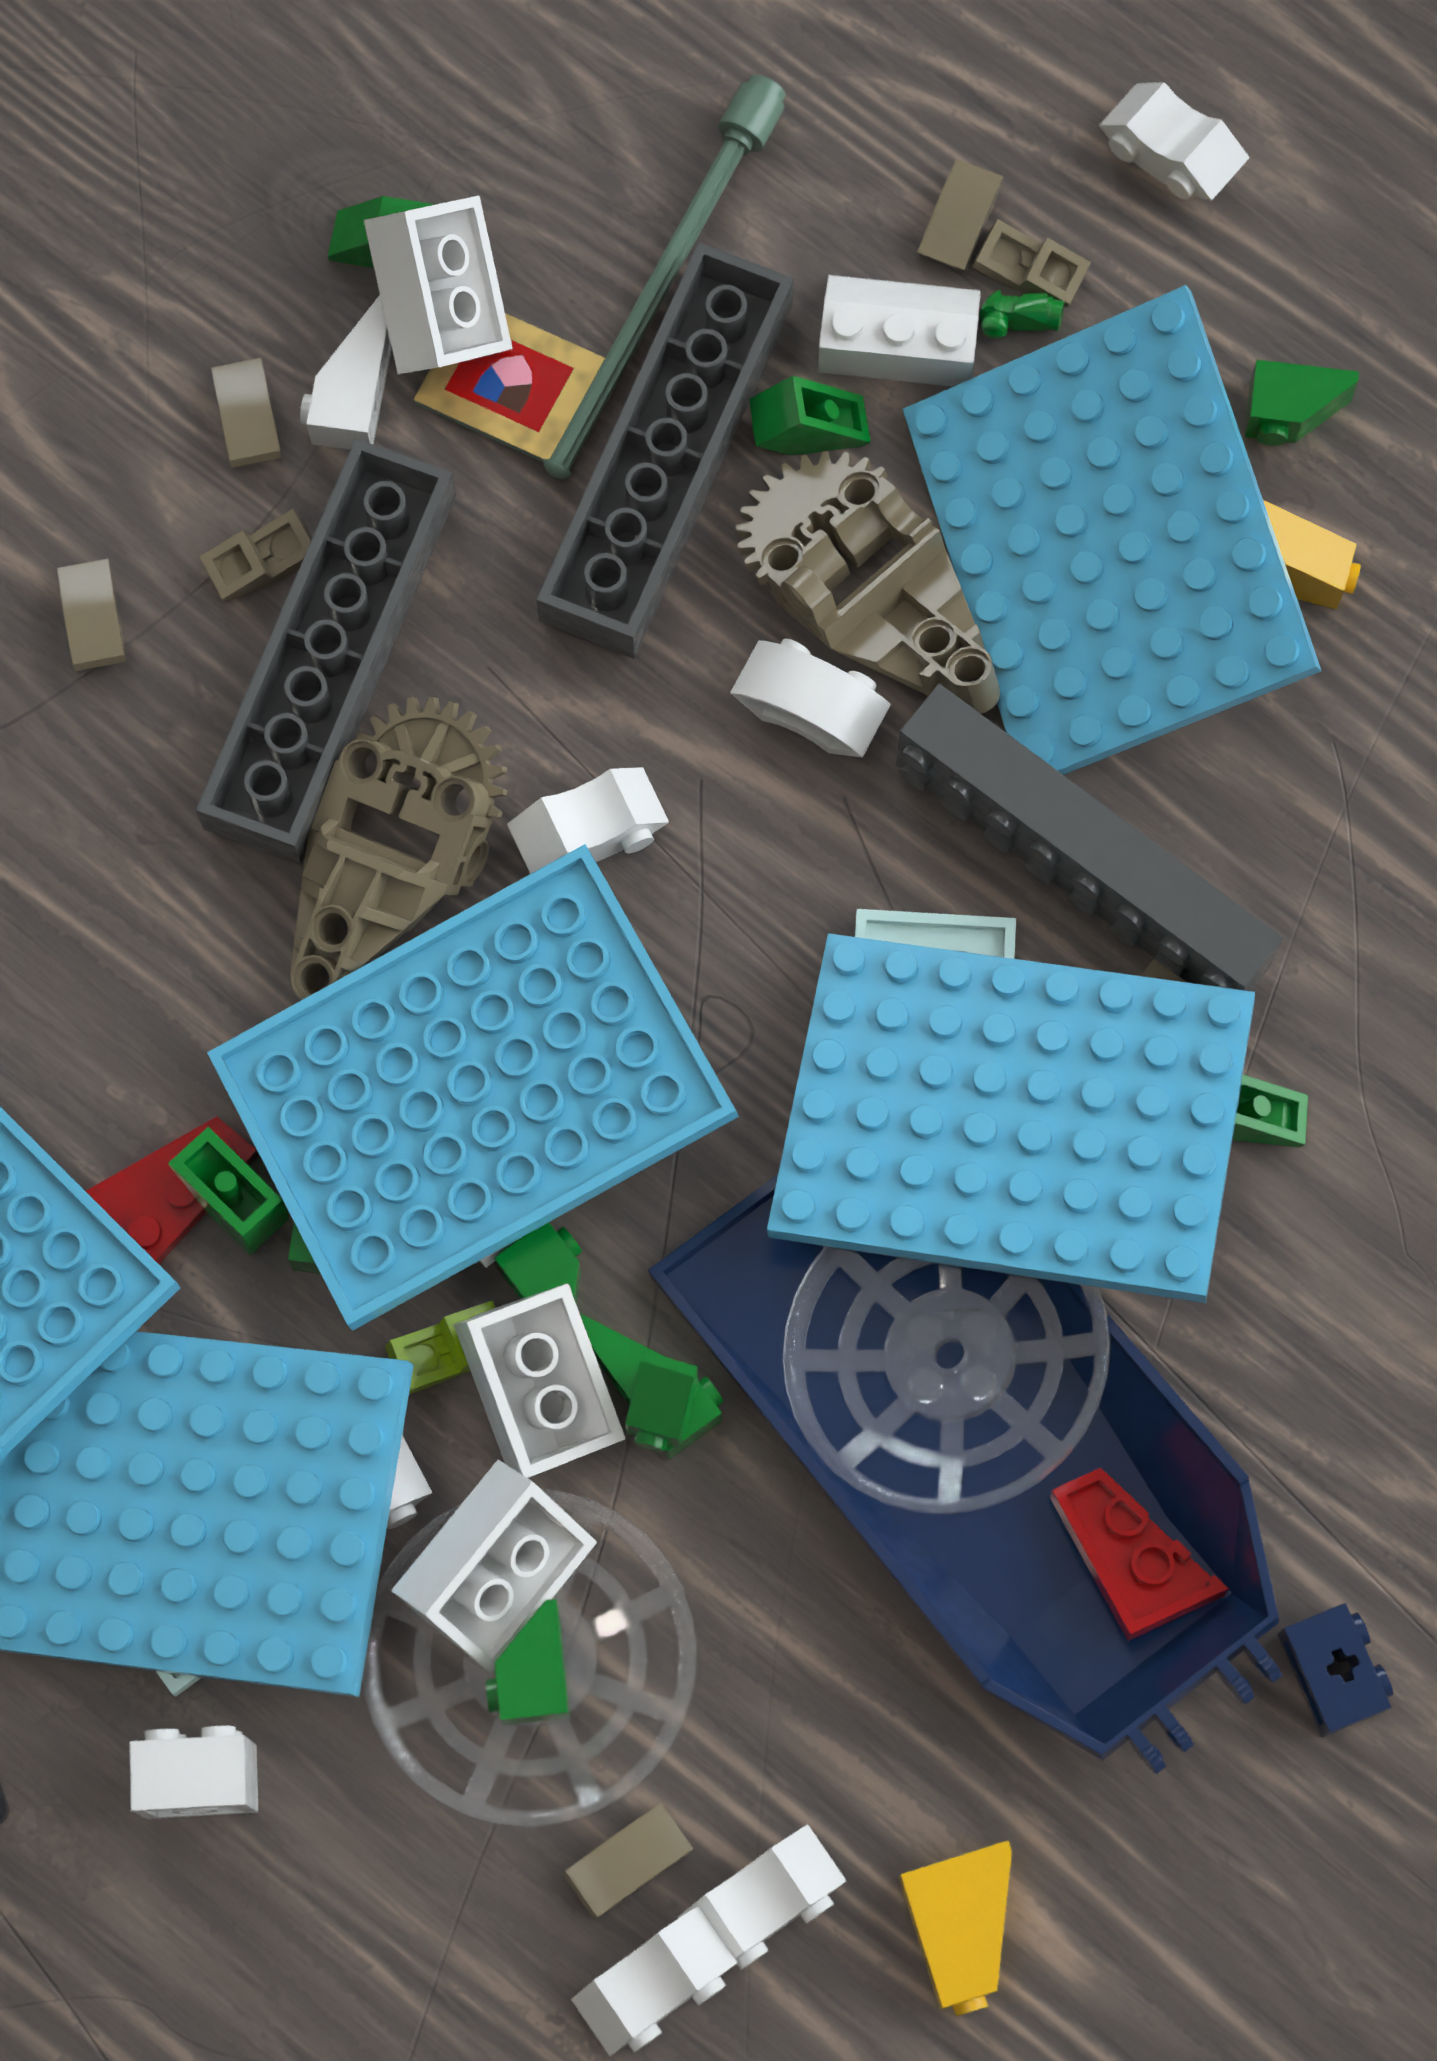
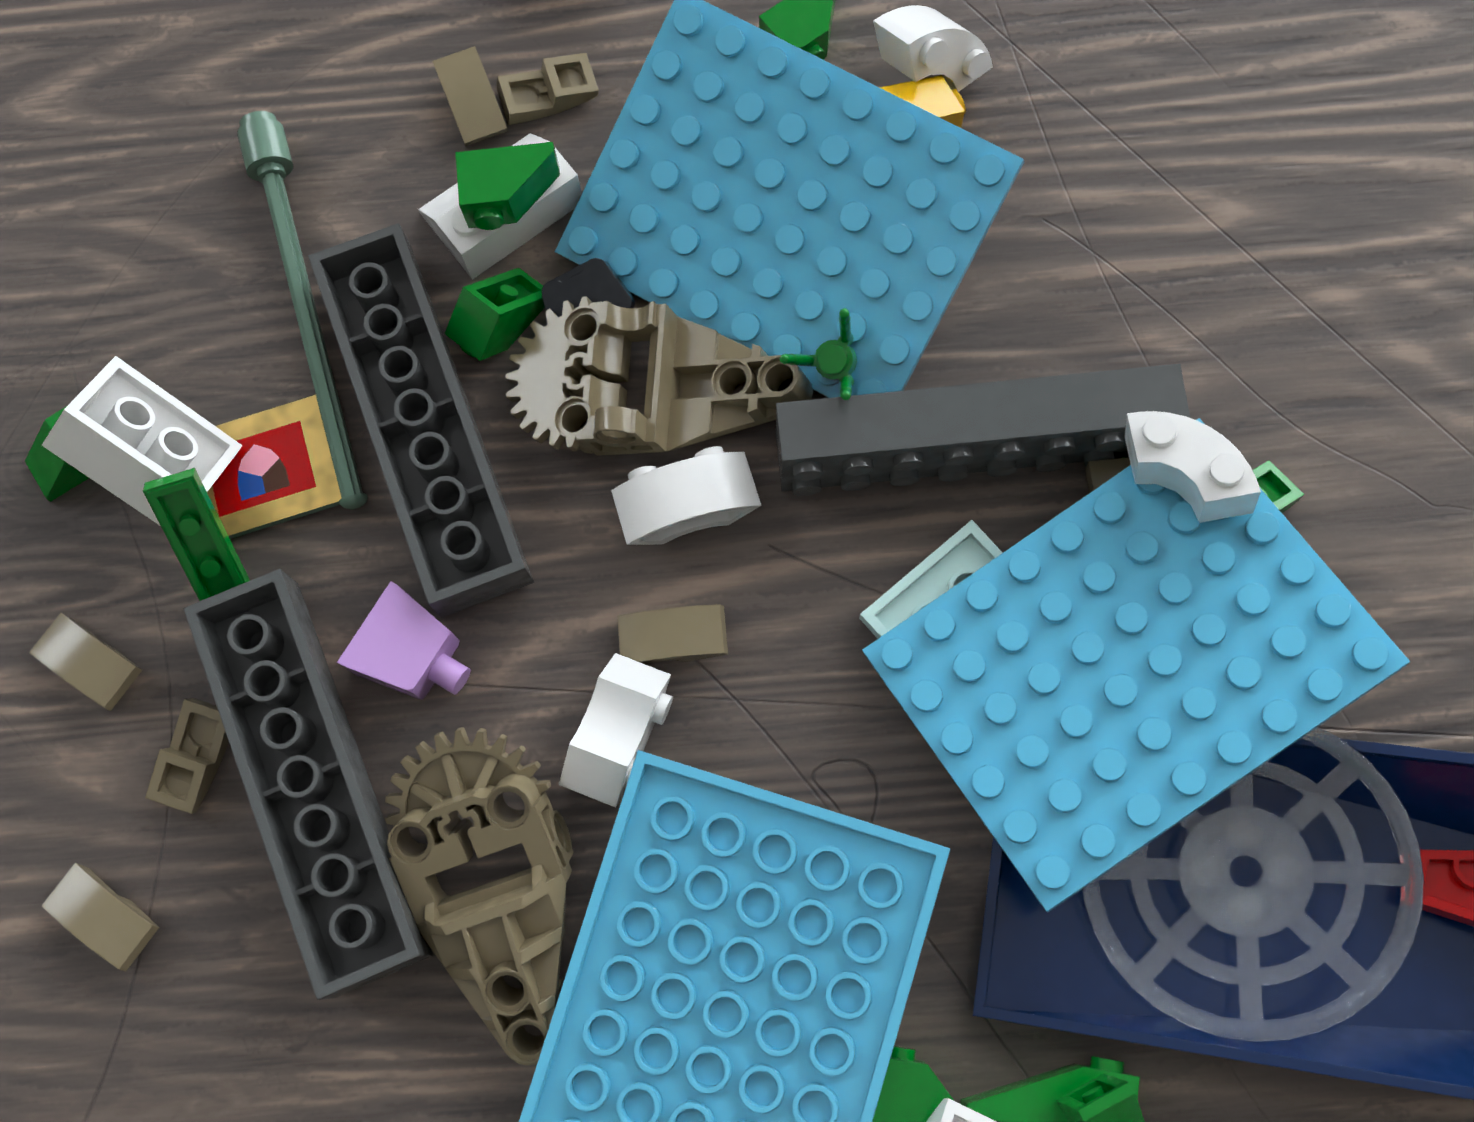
camera: 40 degrees left, 0 degrees up
(350, 385) = (145, 573): white slope -> none
(415, 389) = (195, 533): none -> green tile
(489, 619) = (405, 648): none -> lavender torso
(701, 794) = (673, 634): none -> dark tan slope
(900, 320) = (503, 182): none -> green slope
(903, 459) = (589, 279): none -> black piece
(1020, 313) = (575, 120): green arm -> none
(1024, 692) = (833, 358): none -> green plant
(1199, 1004) = (1192, 462): none -> white brick
(1372, 511) = (928, 43): none -> white brick

